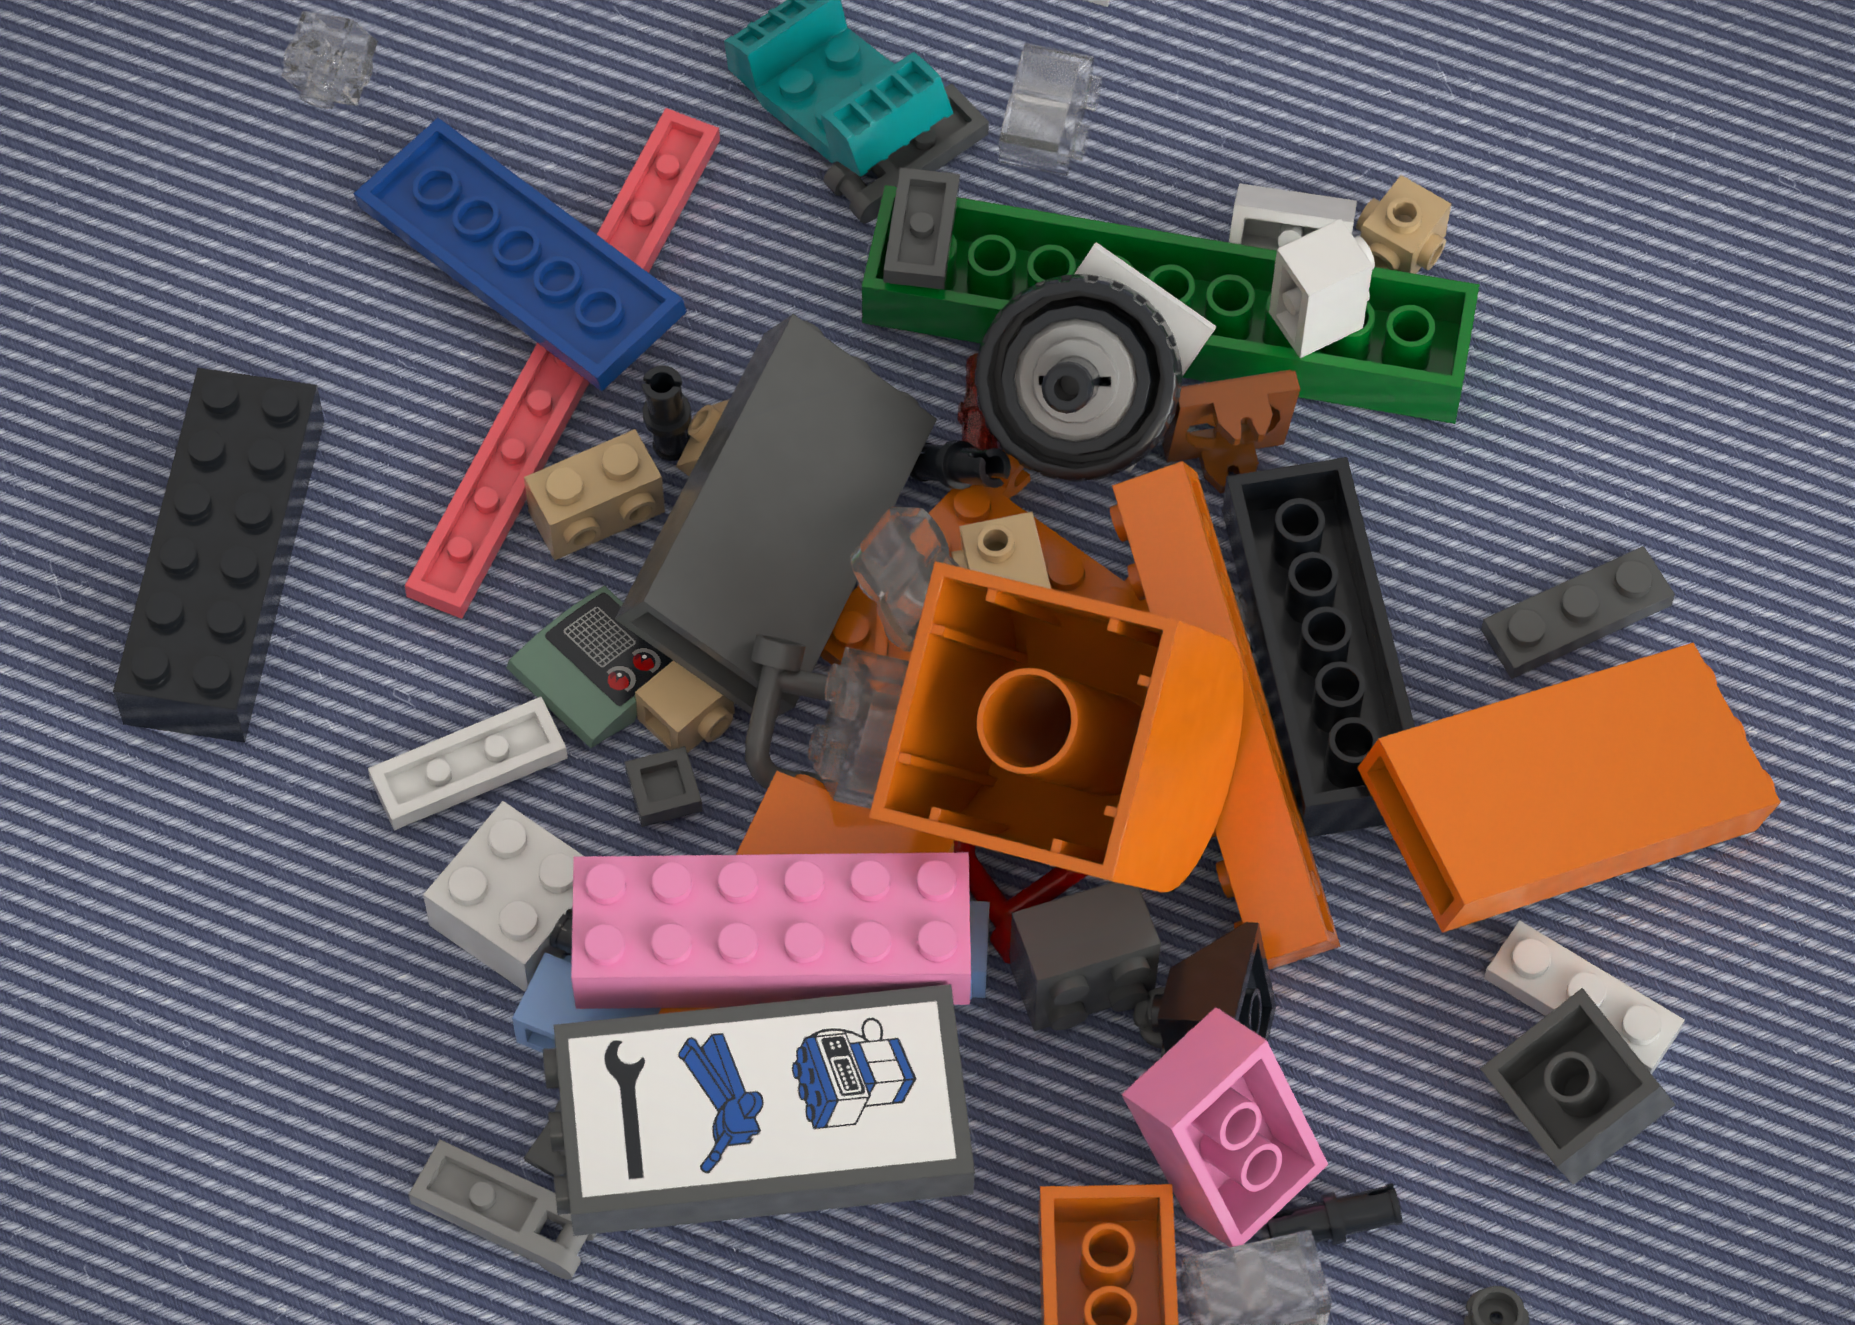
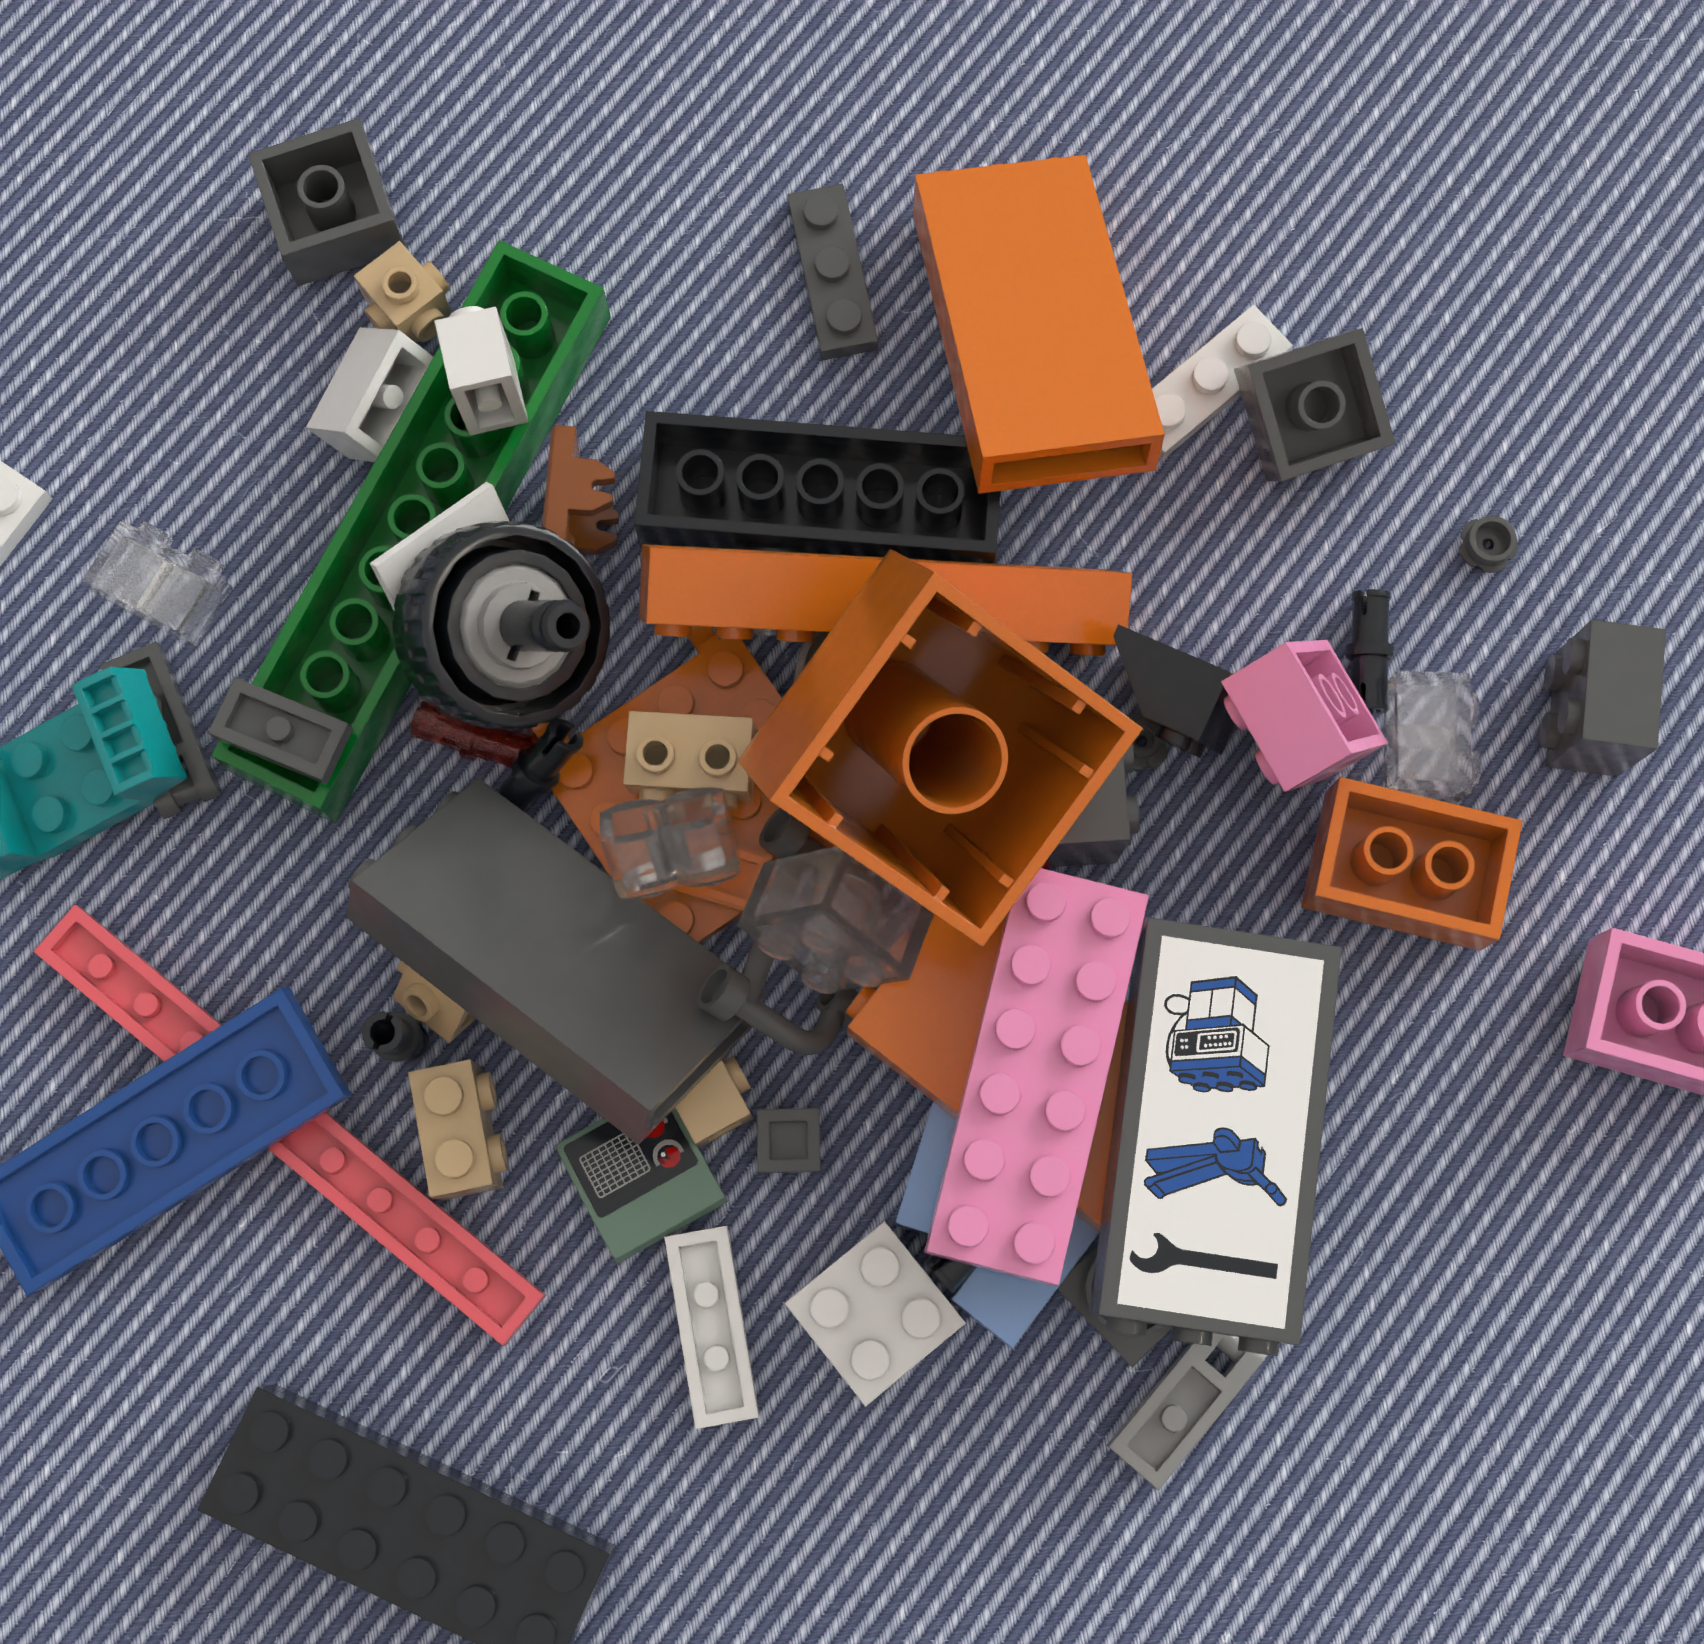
camera: 75 degrees left, 15 degrees up
(1475, 138) = (326, 201): none -> dark grey brick

